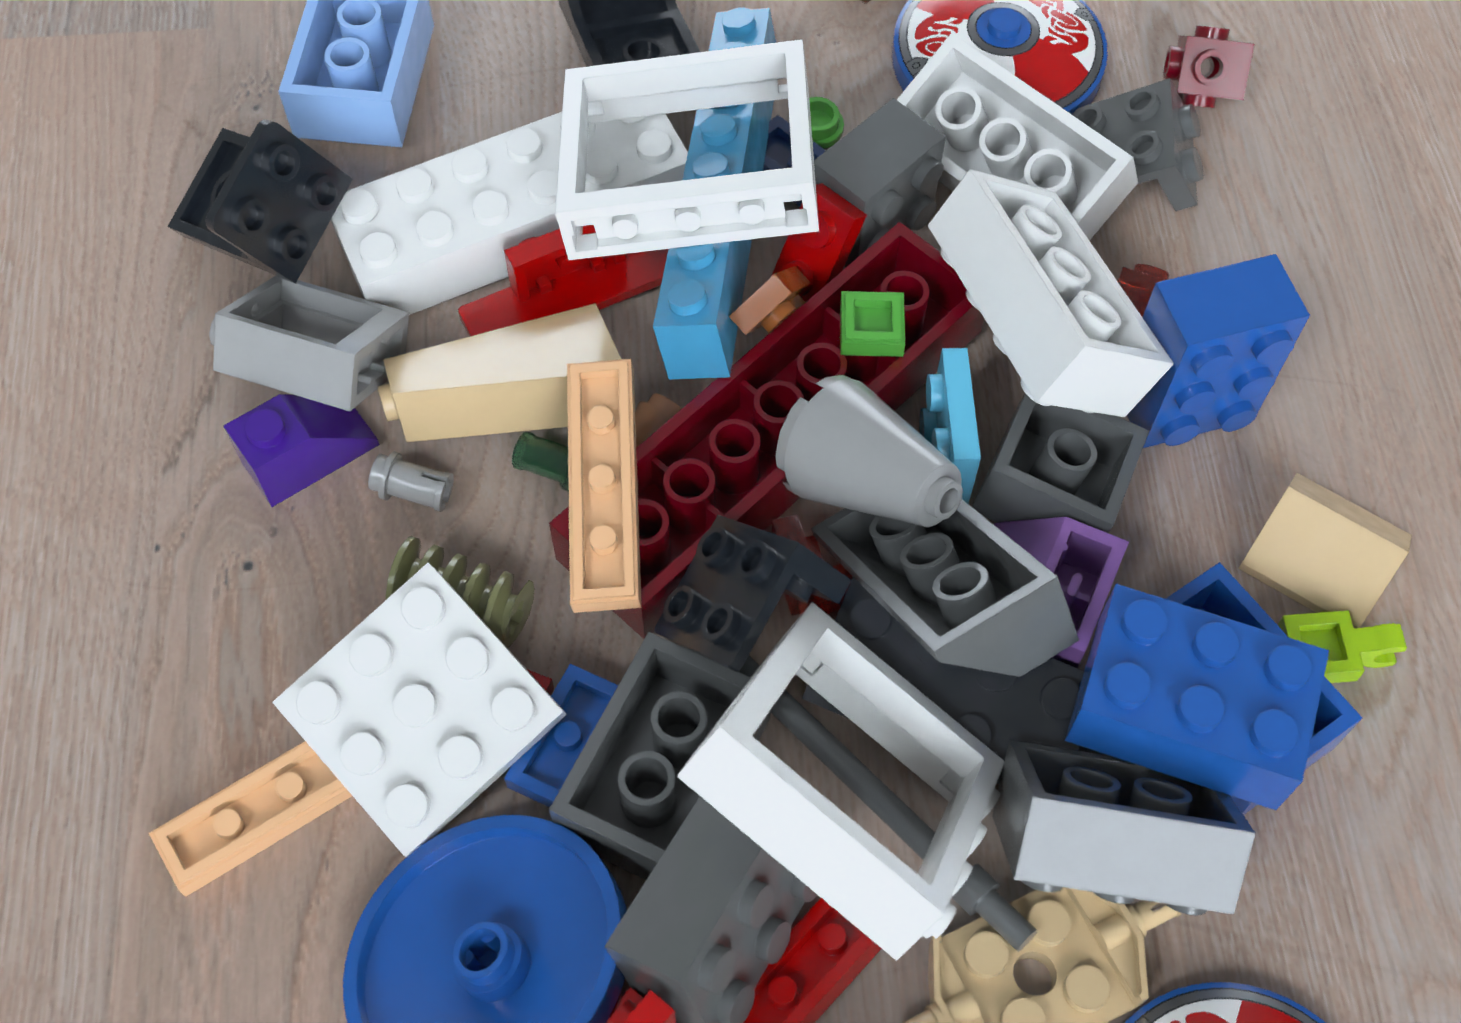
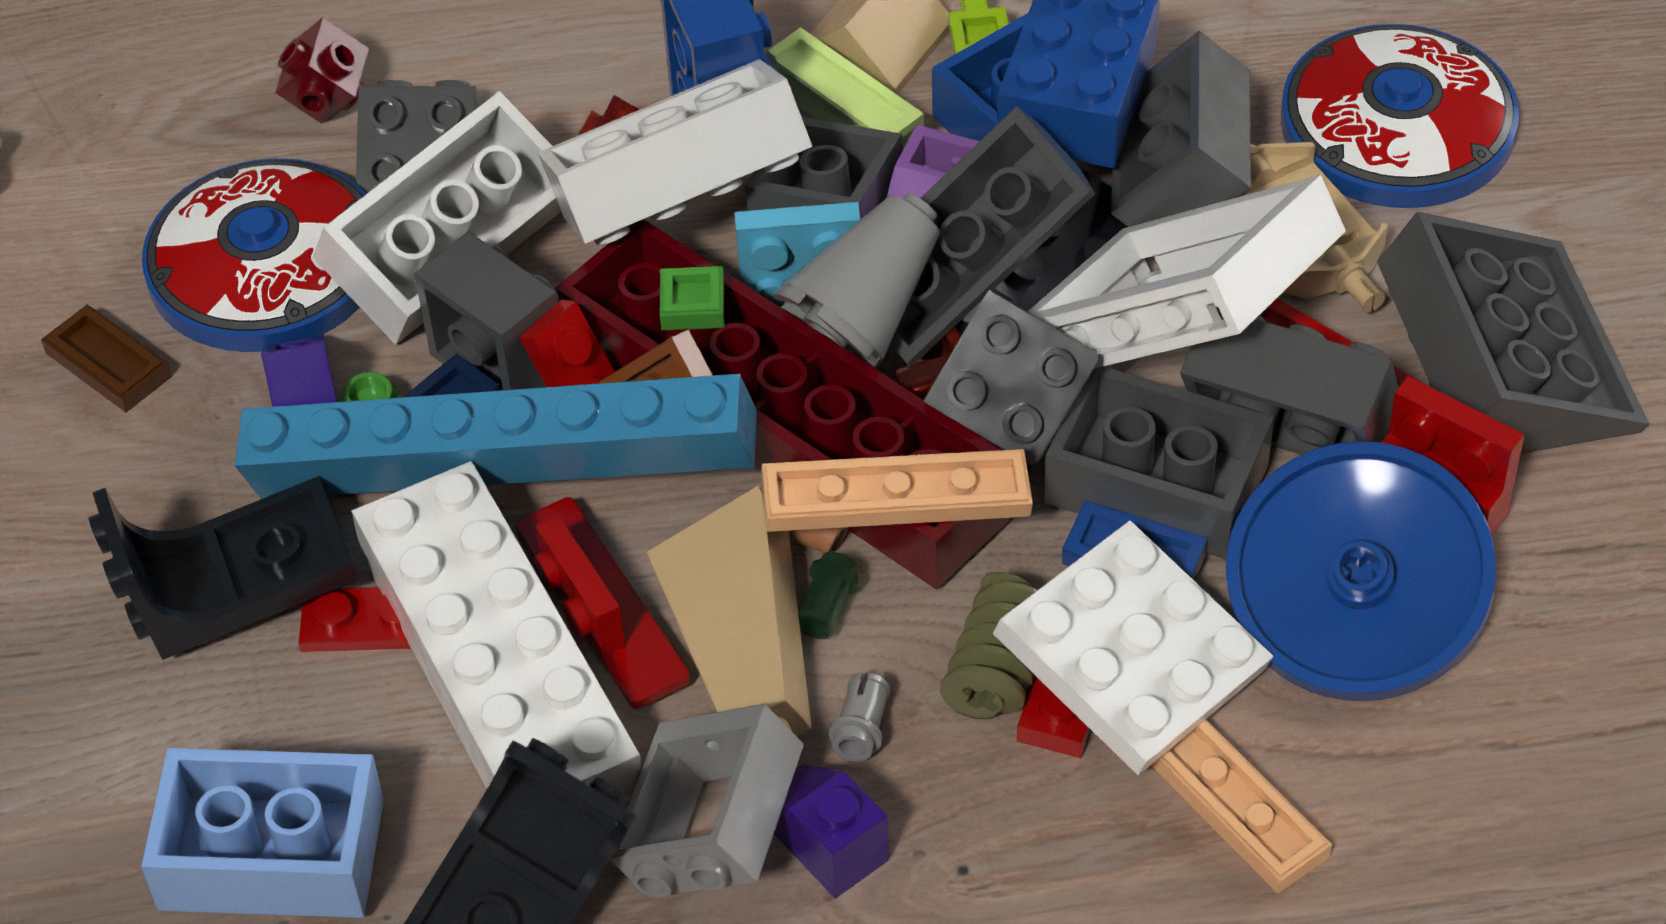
camera: 90 degrees left, 10 degrees down
(693, 209) = (529, 511): white window -> none
(846, 66) = (299, 372): none -> dark purple slope
(1203, 503) = (837, 90): none -> yellowish green container

